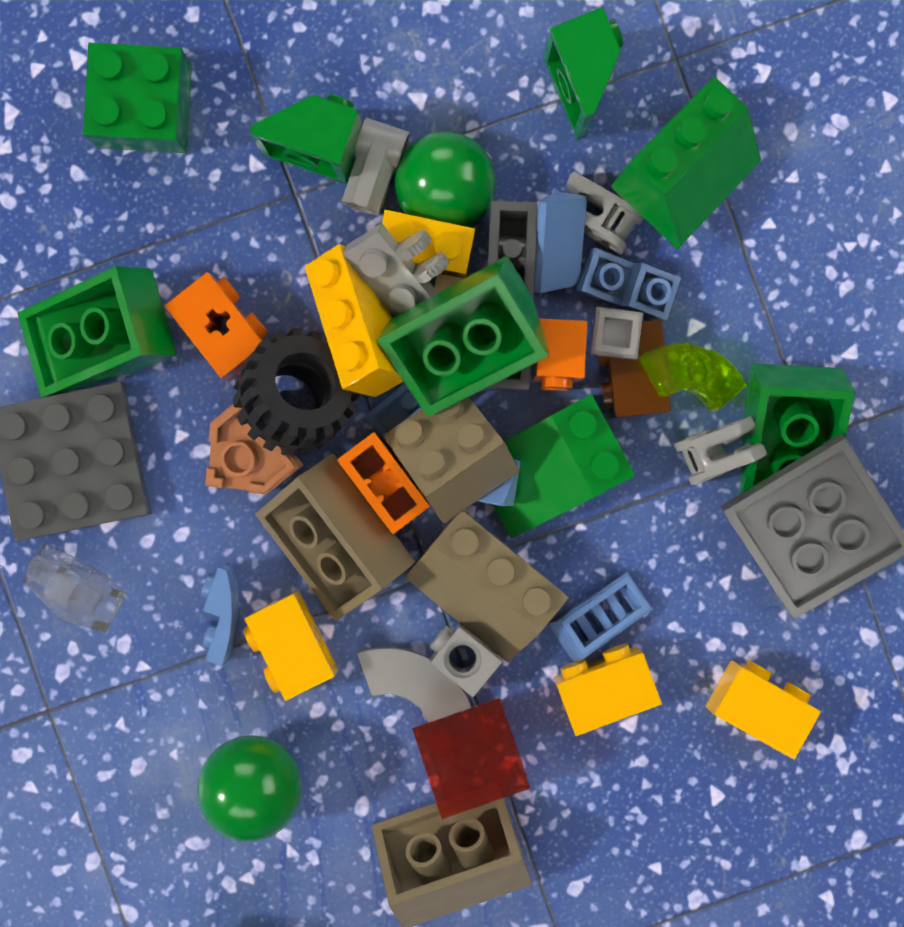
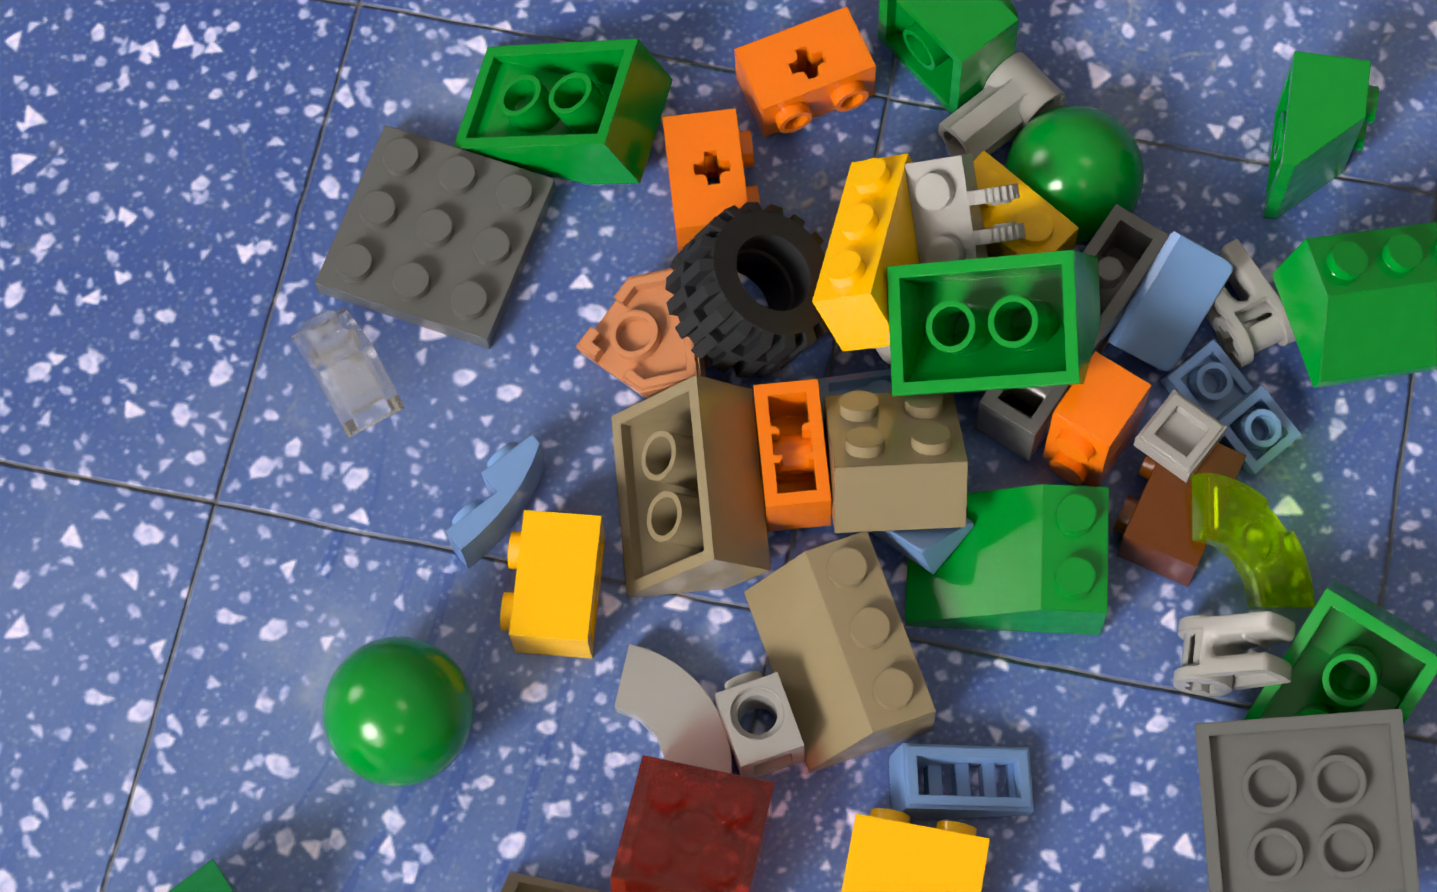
camera: 35 degrees right, 20 degrees down
(239, 190) = (805, 72): none -> orange brick

